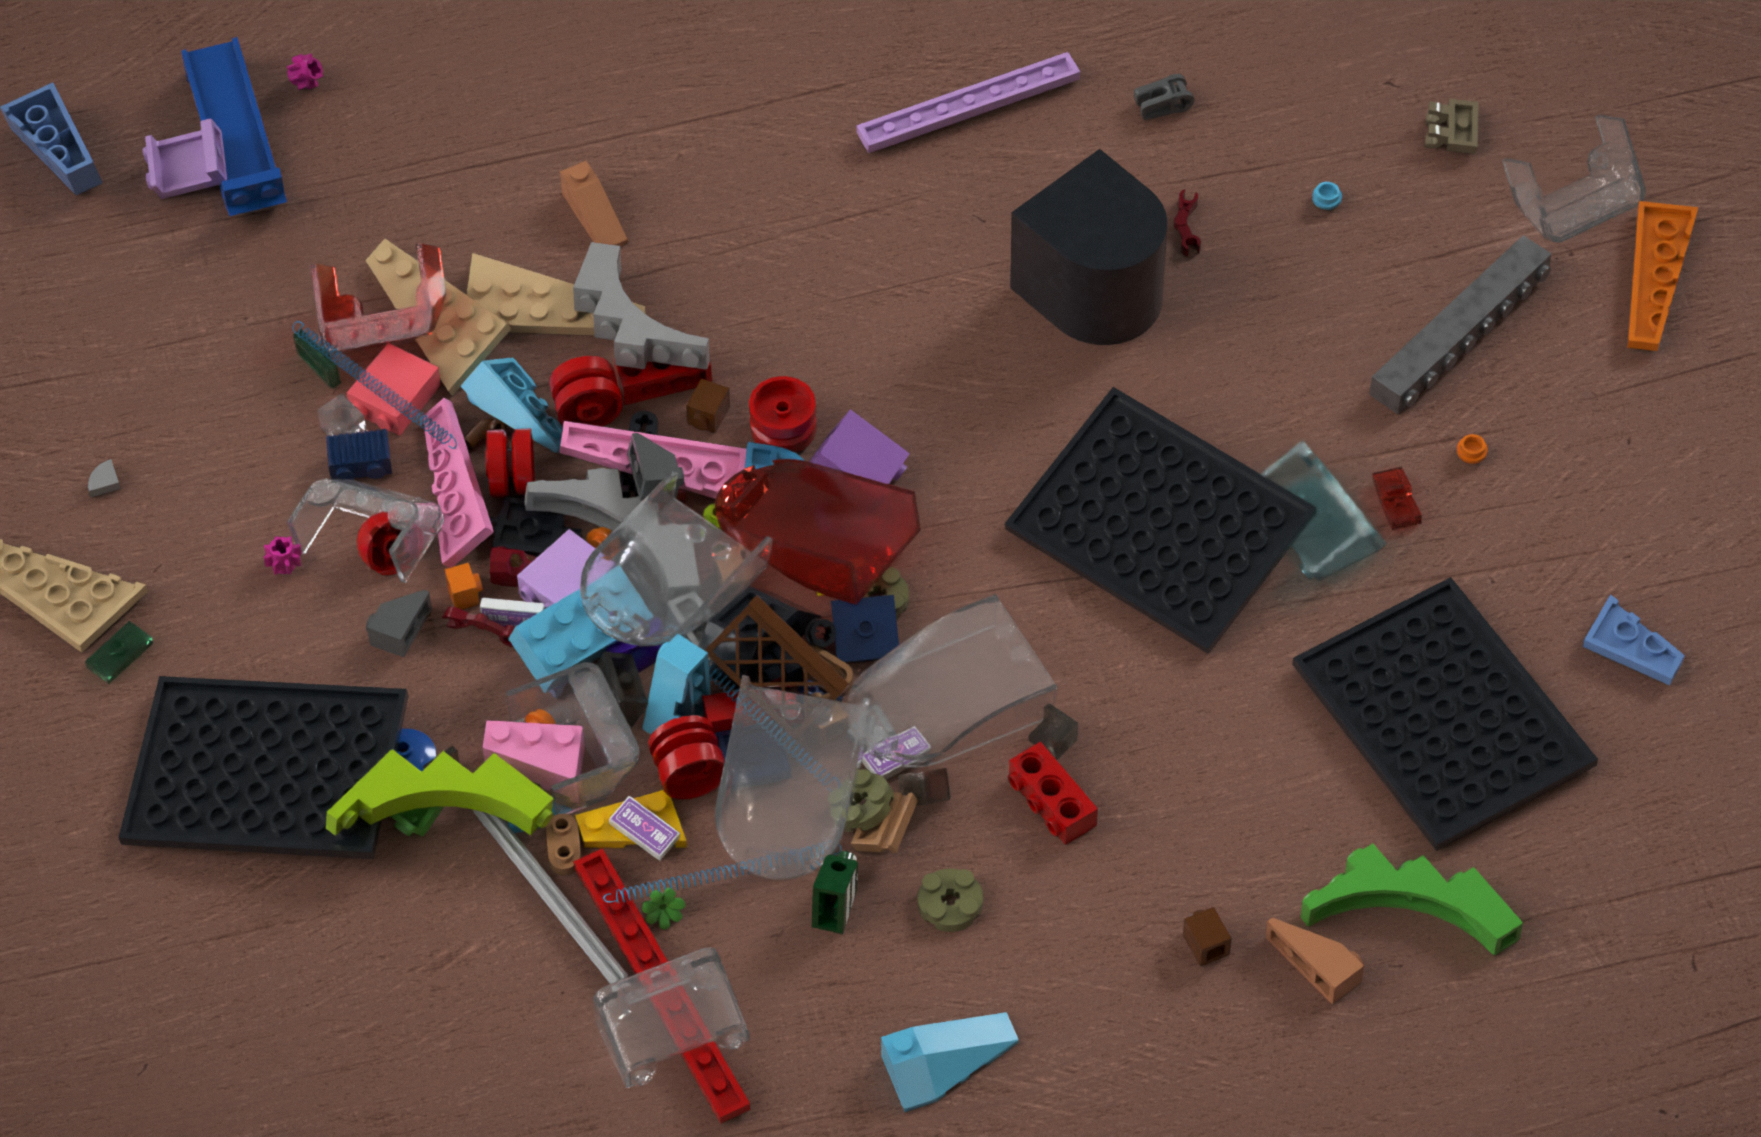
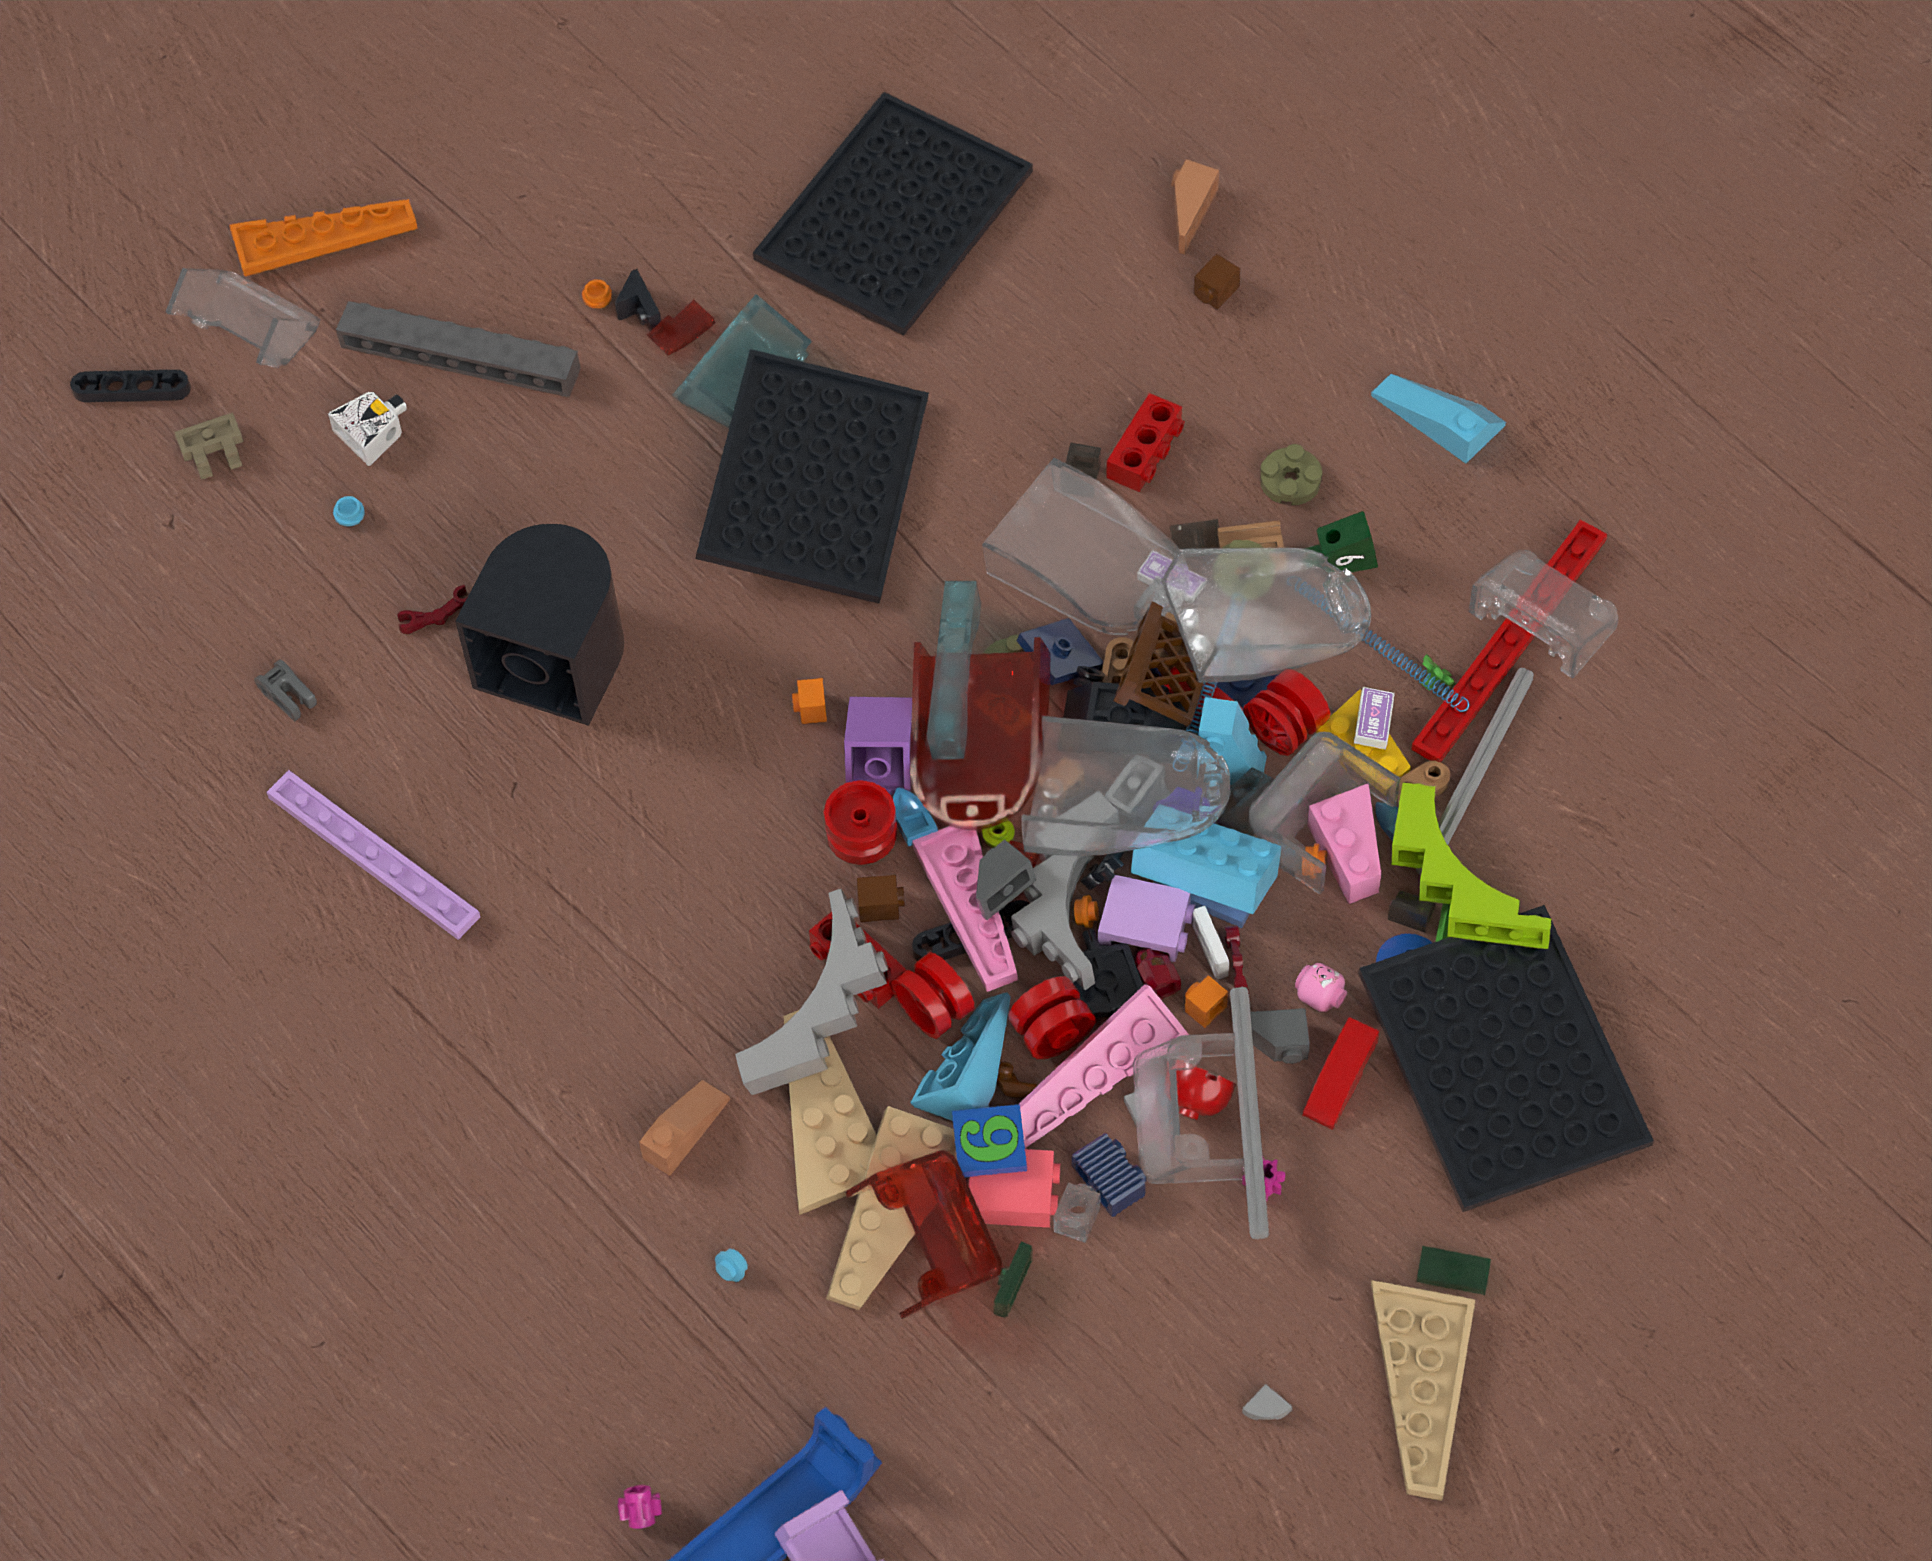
camera: 115 degrees left, 5 degrees up
(335, 553) = (1249, 1114): none -> light grey axle
(335, 651) = (1341, 1073): none -> red slope
(376, 384) = (1036, 1186): piece -> none
(417, 669) = (1320, 987): none -> bright pink head
(431, 374) = (989, 1140): none -> blue tile
(455, 194) = (731, 1265): none -> medium azure plate
(929, 435) = (810, 701): none -> orange plate
(940, 563) = (950, 684): none -> clear light blue arch
(1409, 234) = (368, 424): none -> white torso
(1417, 886) = (1092, 190): bright green arch -> none
(1445, 475) = (637, 300): none -> black slope
(1553, 94) = (131, 380): none -> black beam
(1628, 642) = (748, 114): medium blue wing -> none

